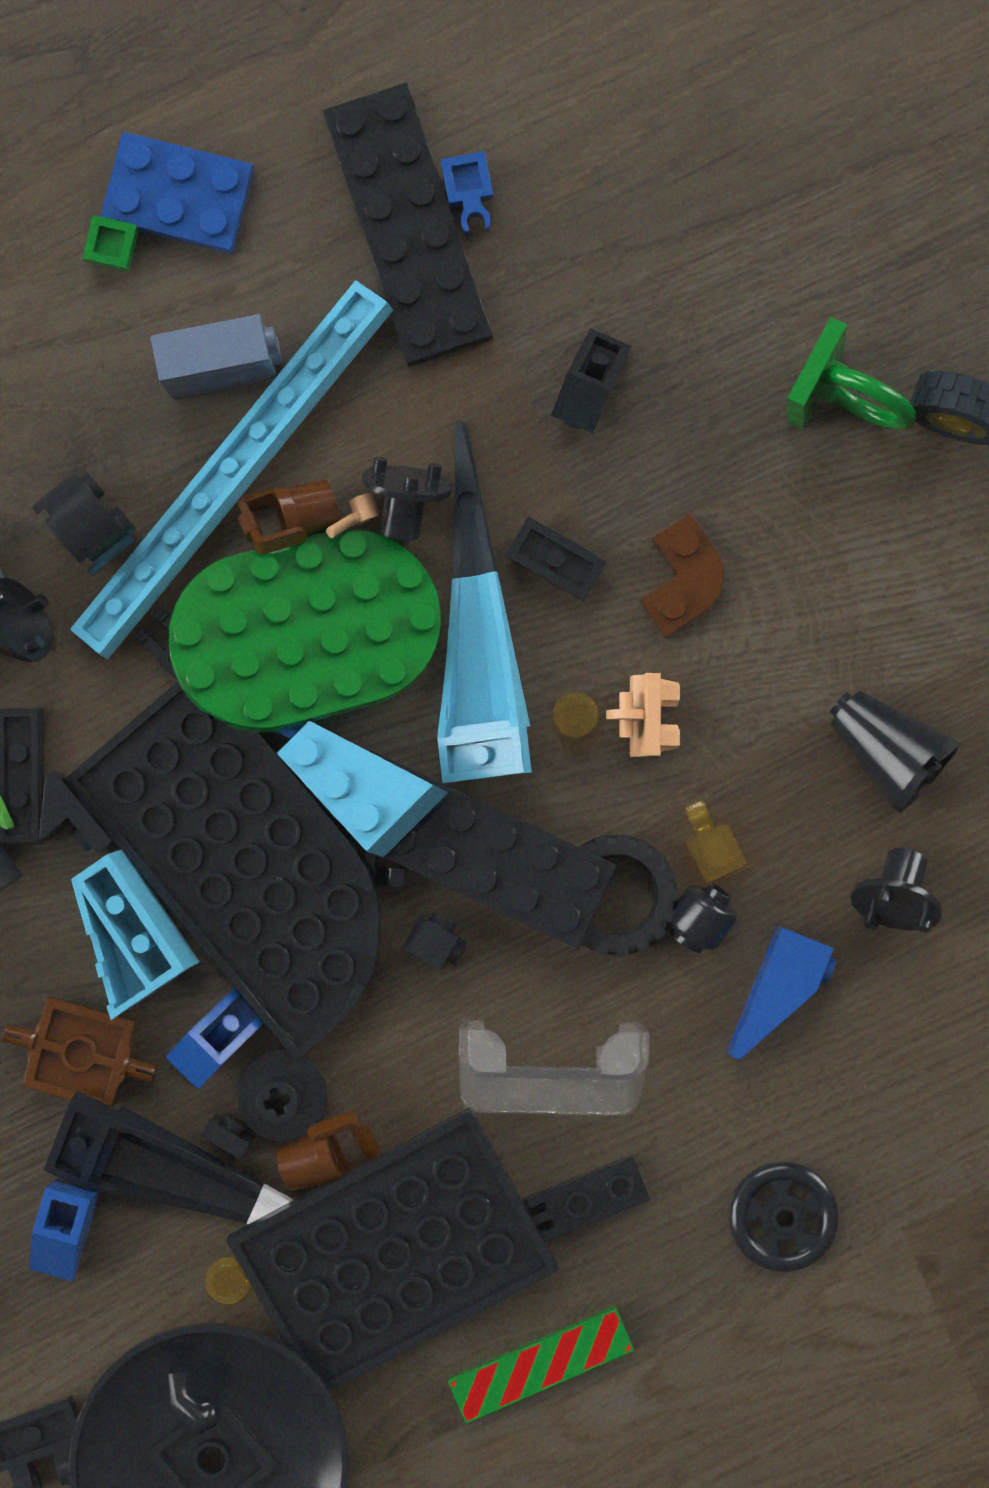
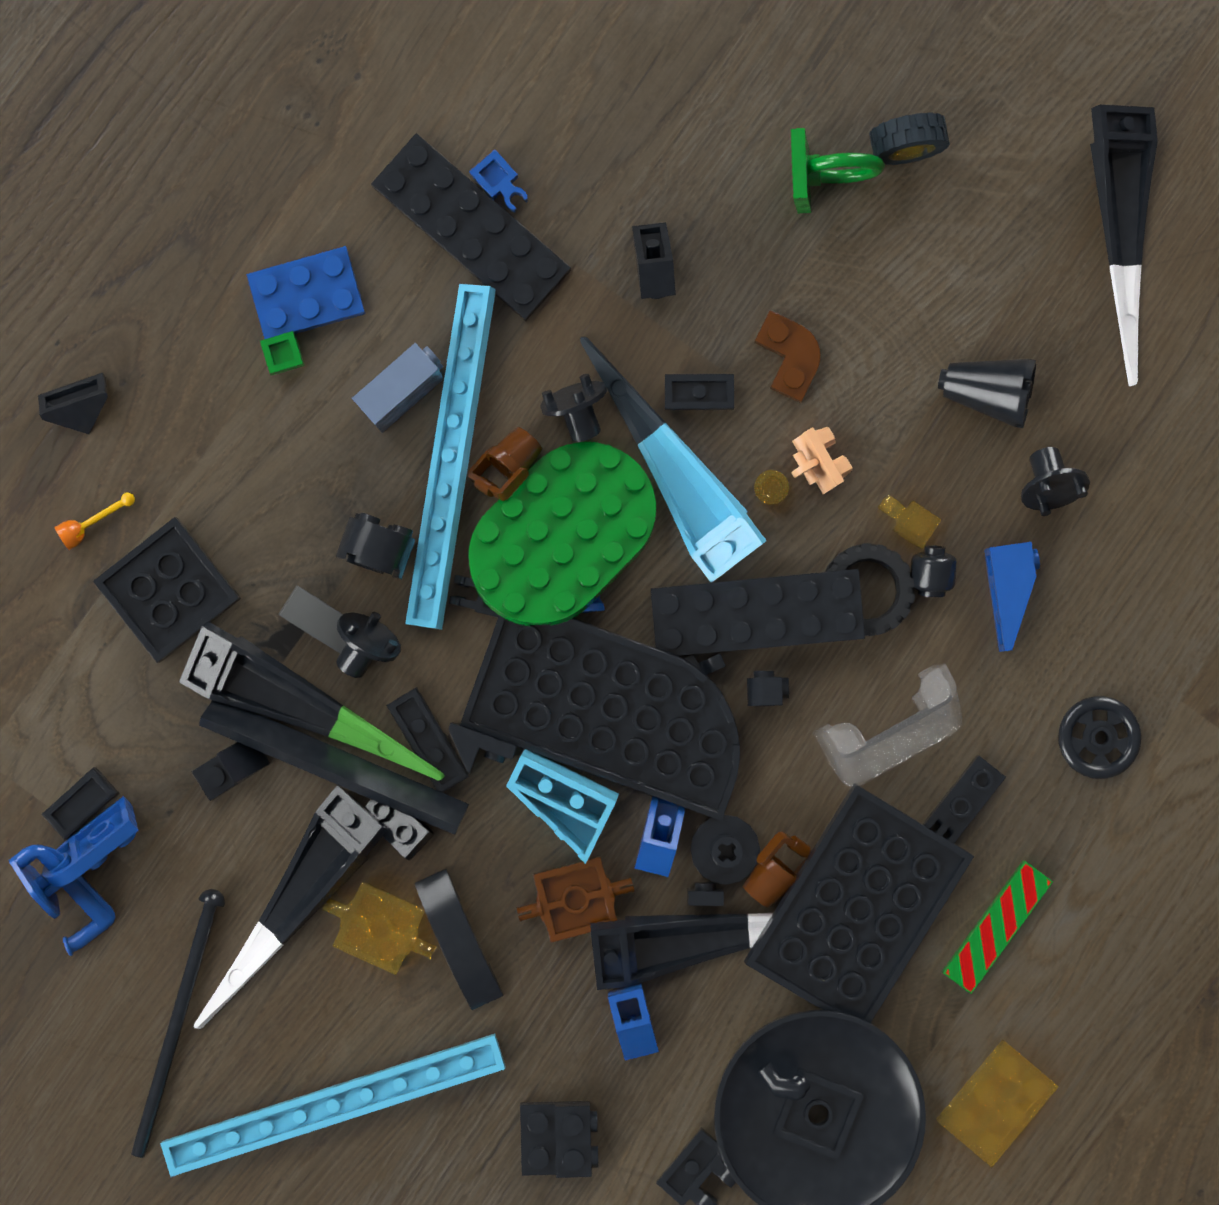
camera: 30 degrees left, 0 degrees up
(226, 1281) = (760, 991): clear yellow plate -> none
(359, 788) = (660, 615): medium azure wedge -> none
(363, 509) = (552, 432): light nougat hand -> none

